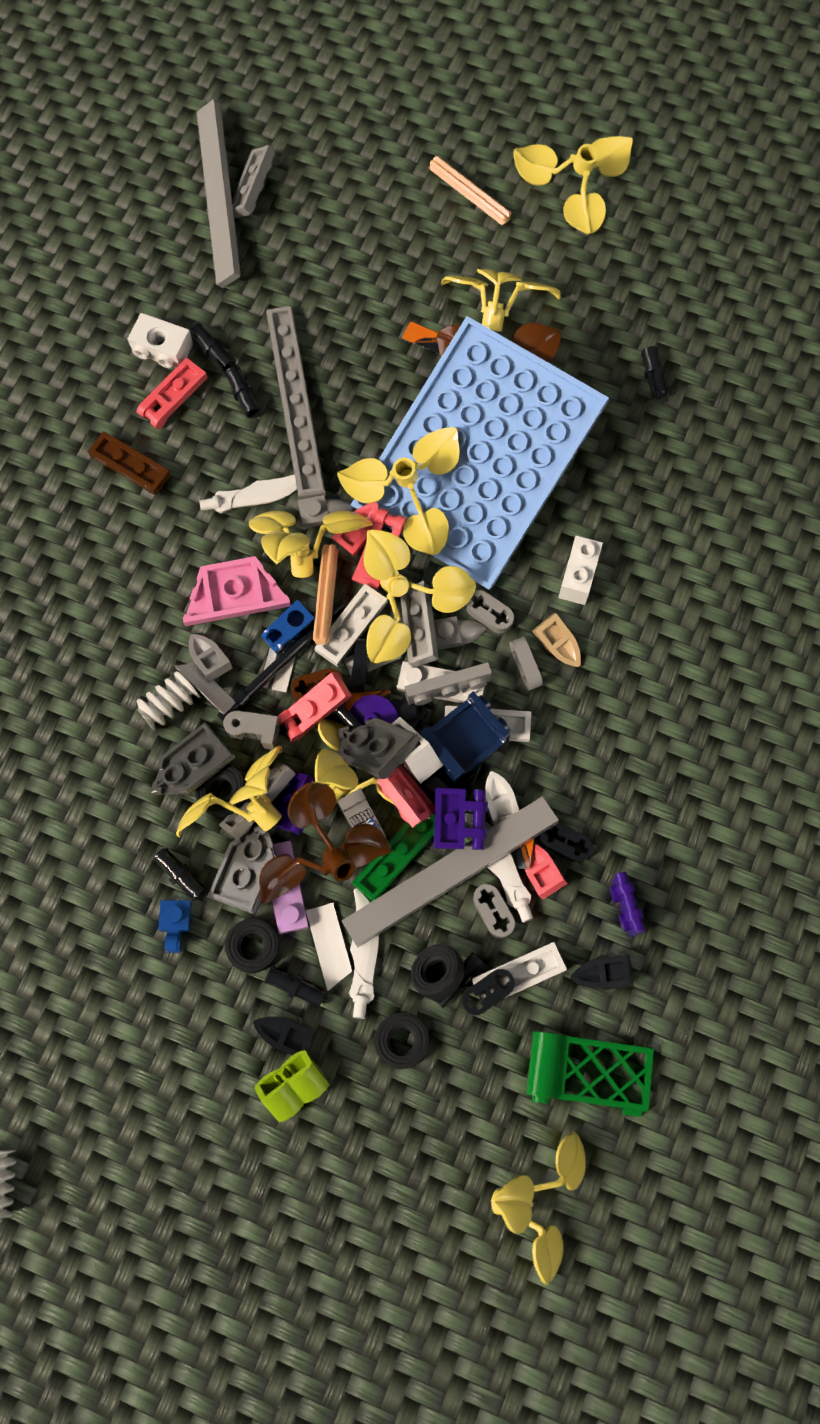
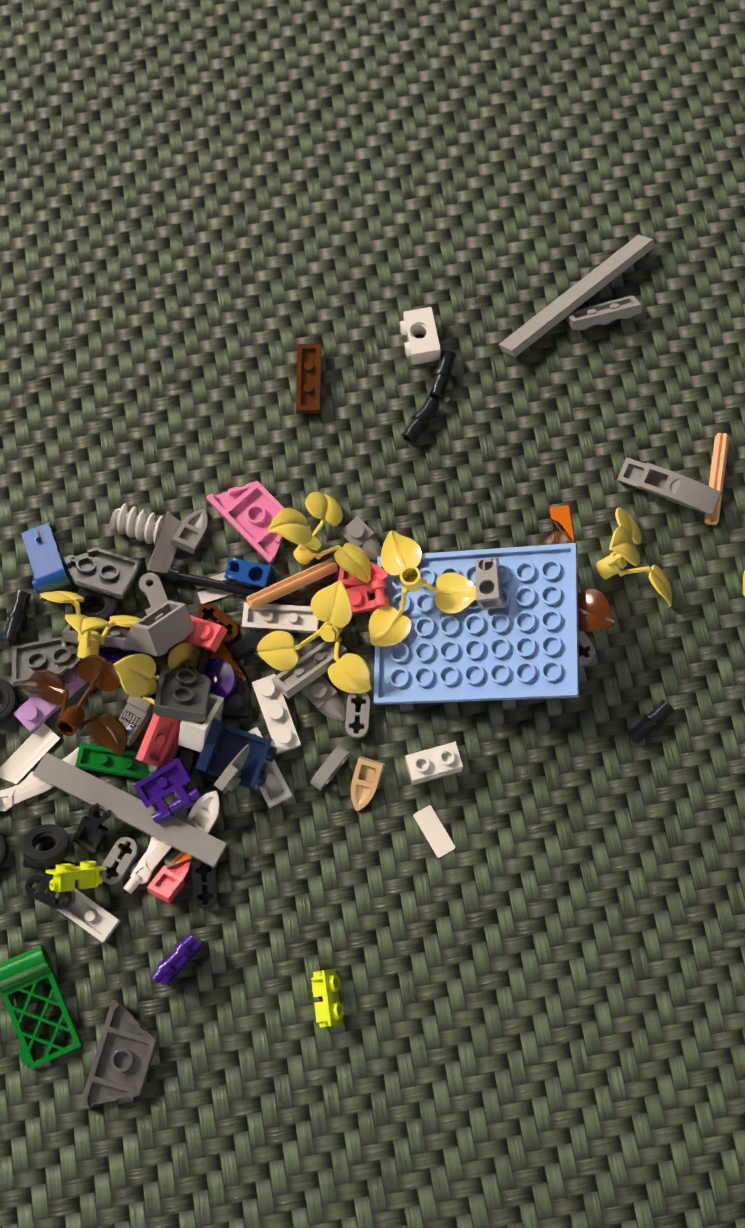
camera: 60 degrees right, 0 degrees up
(140, 811) = (45, 560): none -> door
(171, 392) = (385, 371): coral plate -> none
(256, 494) = (344, 483): white sword -> none
(295, 403) = (438, 463): light grey tile -> none
(298, 730) = (160, 629): none -> light grey slope
(448, 684) = (270, 718): light grey plate -> none
(450, 919) = (91, 831): none -> black plate
(451, 226) = (669, 485): none -> light grey slope
(454, 411) = (489, 584): none -> light grey leg
(486, 752) = (230, 777): none -> light grey plate
(490, 955) = (65, 875): none -> neon yellow hinge
(605, 973) = (118, 974): black plate -> none
(639, 611) = (434, 831): none -> white sticker
(689, 1017) = (120, 1059): none -> flat silver wing
(751, 795) = (330, 1011): none -> neon yellow hinge

